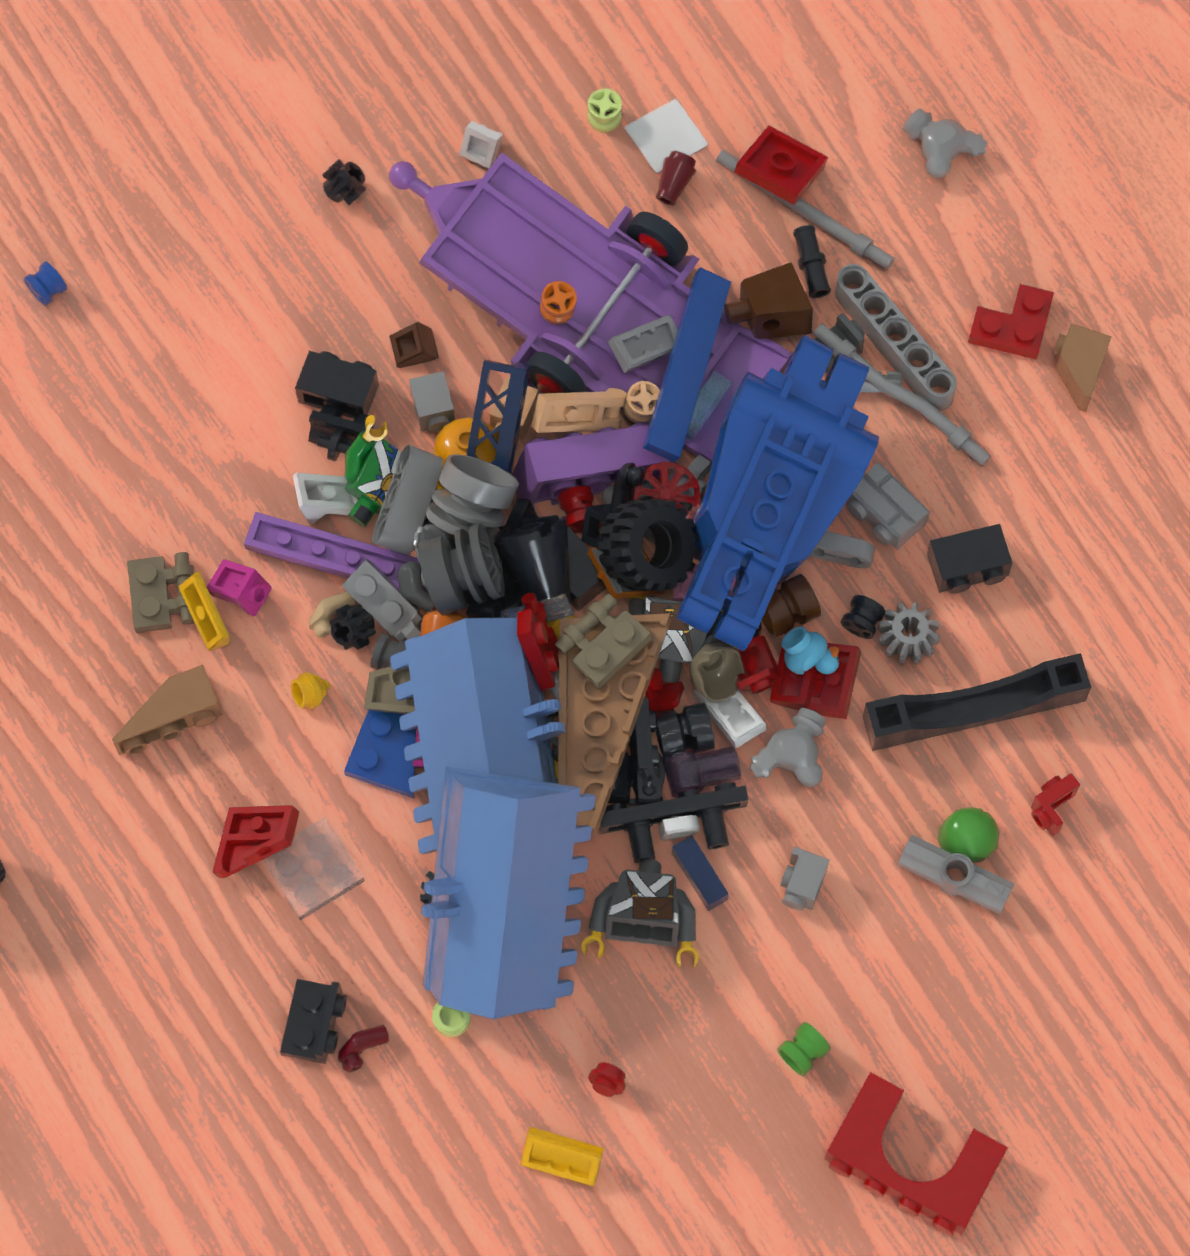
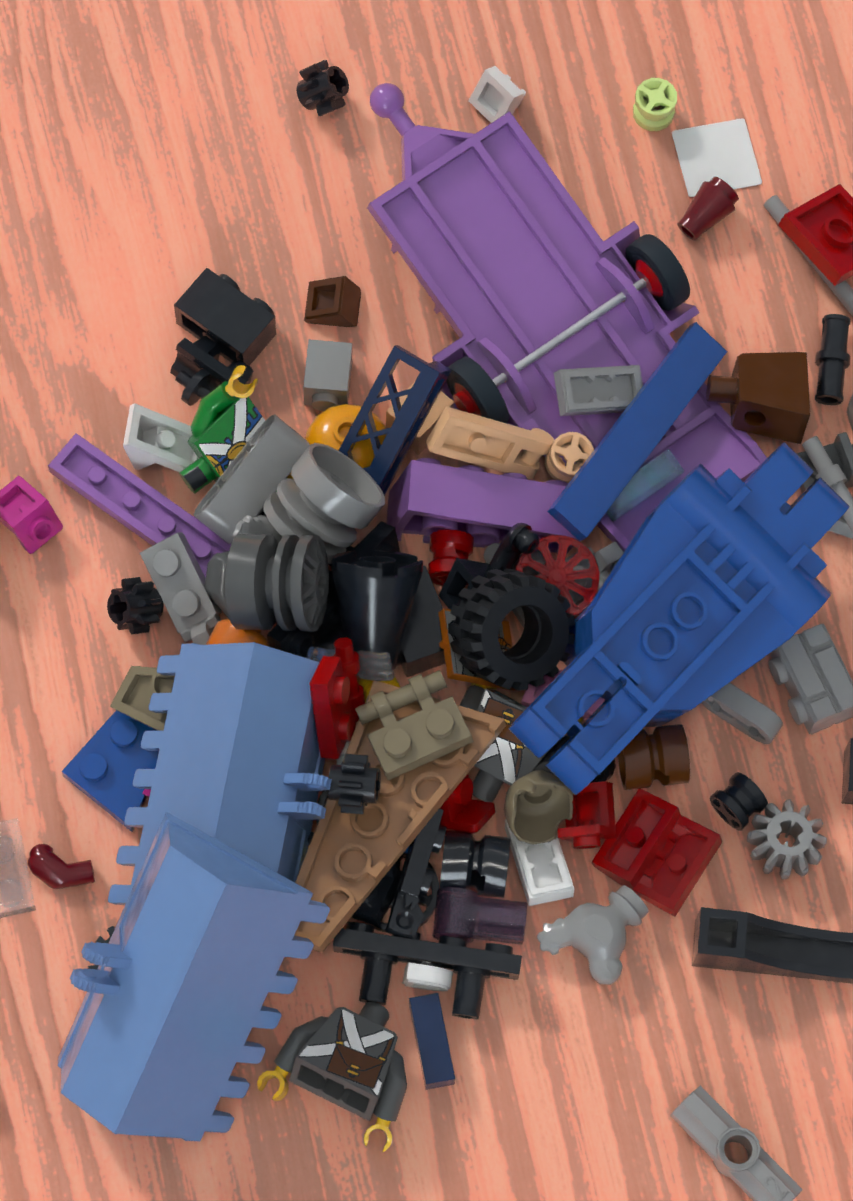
camera: 15 degrees right, 0 degrees up
(309, 690) = (58, 662): yellow plate -> none
(326, 610) = (111, 577): tan arm -> none
(368, 847) = (55, 871): none -> dark red arm
(384, 650) = (160, 644): dark grey wheel -> none
(450, 1021) = (70, 1116): yellowish green tile -> none
(561, 295) = (514, 297): orange wheel -> none
(576, 699) = (354, 784): none -> black gear
(804, 879) = (551, 1093): light grey brick -> none
(807, 650) = (657, 818): medium azure animal -> none
(969, 833) = (771, 1109): bright green hair -> none

